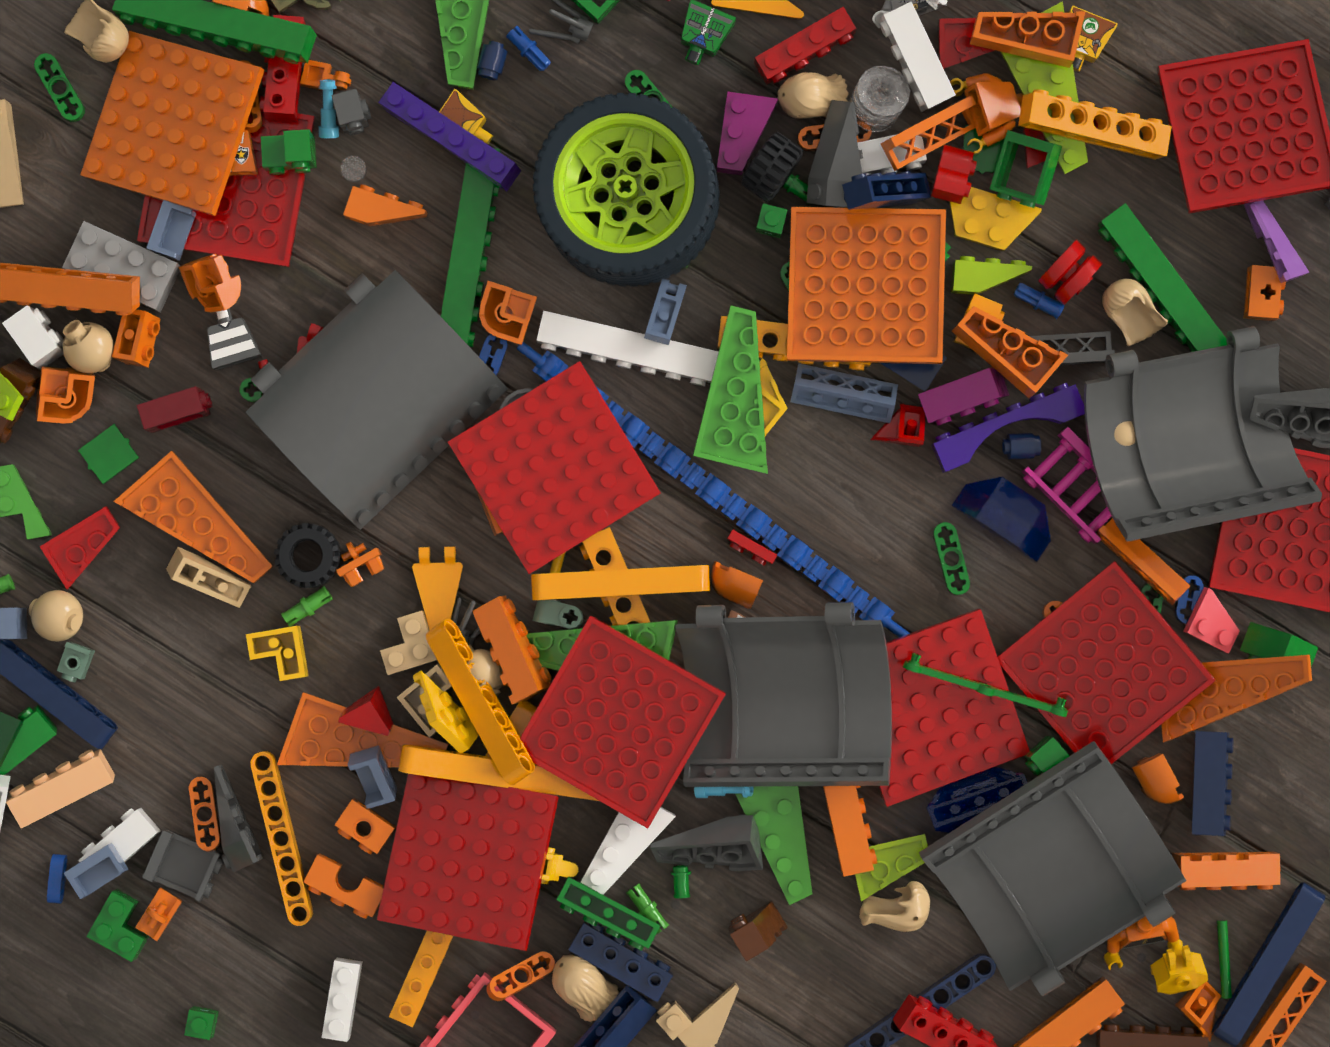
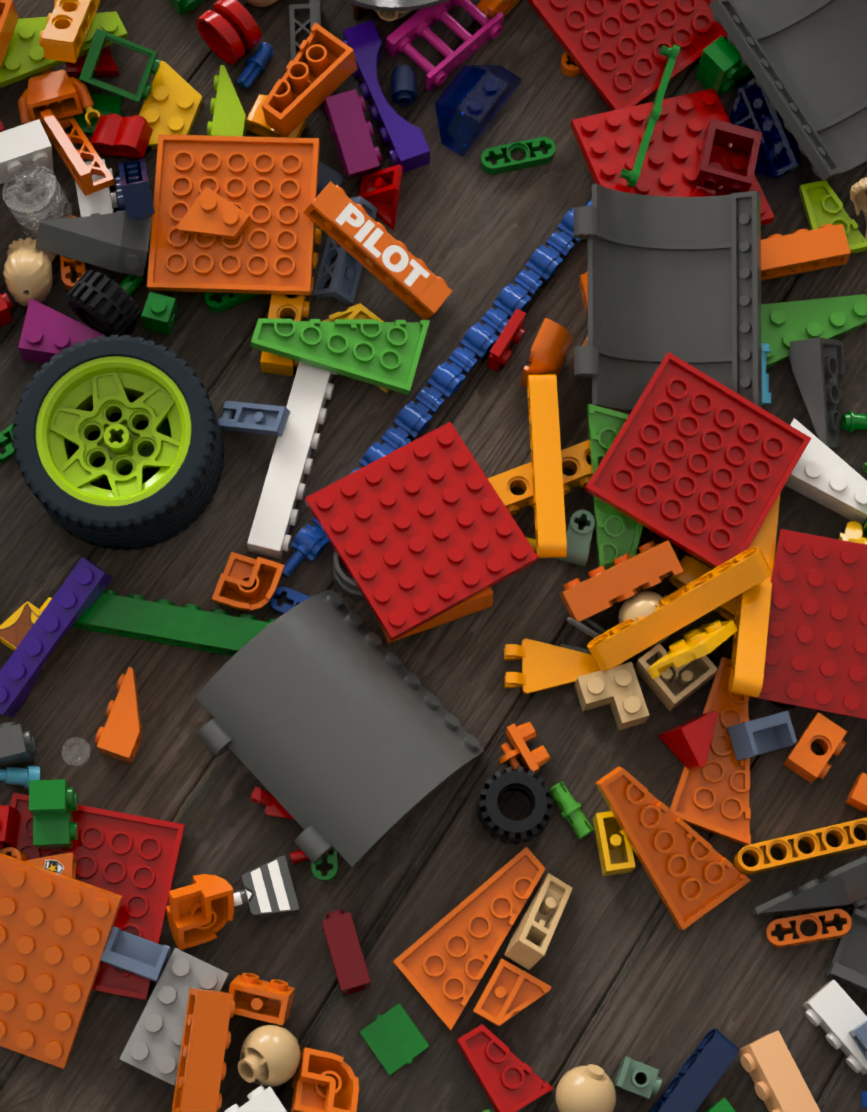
camera: 90 degrees left, 15 degrees down
(146, 551) = (508, 993): none -> orange wing
(258, 697) = (676, 858): none -> orange wing
(832, 422) = (378, 251): none -> orange brick
(858, 265) = (214, 217): none -> orange wing
(965, 764) = (732, 138): none -> dark red window

